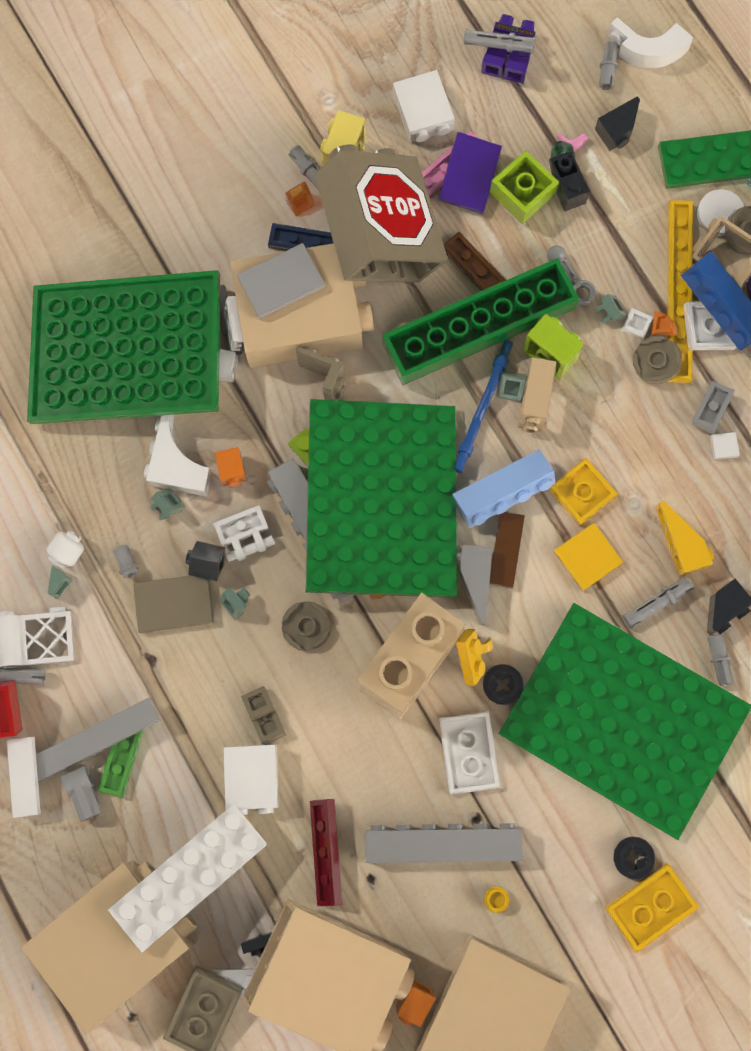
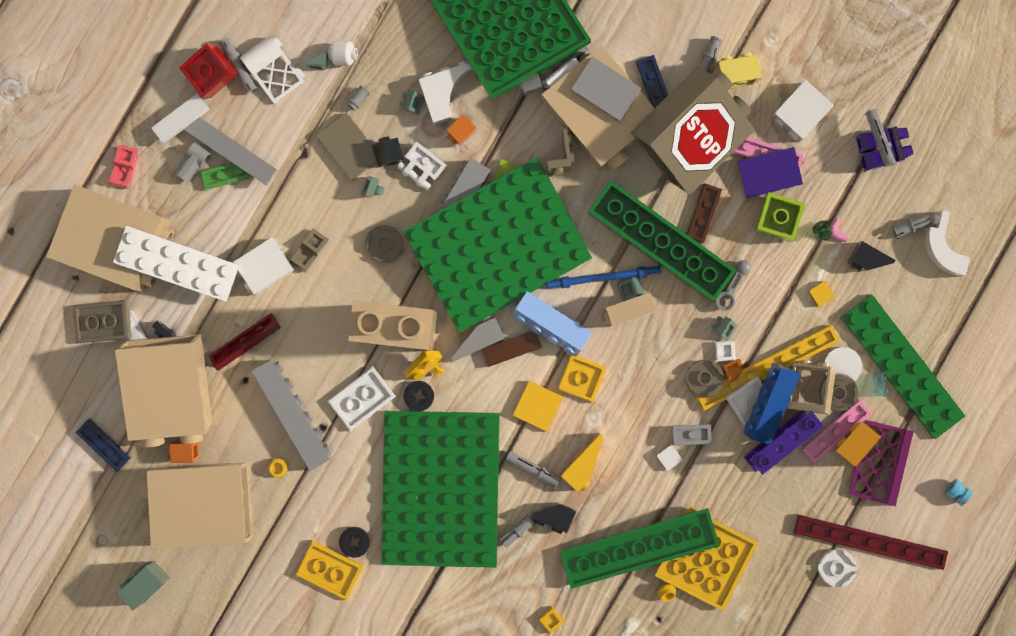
camera: 55 degrees right, 10 degrees up
(37, 878) = (124, 166): none -> coral slope
(299, 199) = (682, 63): clear orange slope -> none
(554, 343) = (670, 302): lime brick -> none
(572, 186) = (803, 245): black slope -> none
(630, 192) = (821, 293): none -> yellow tile

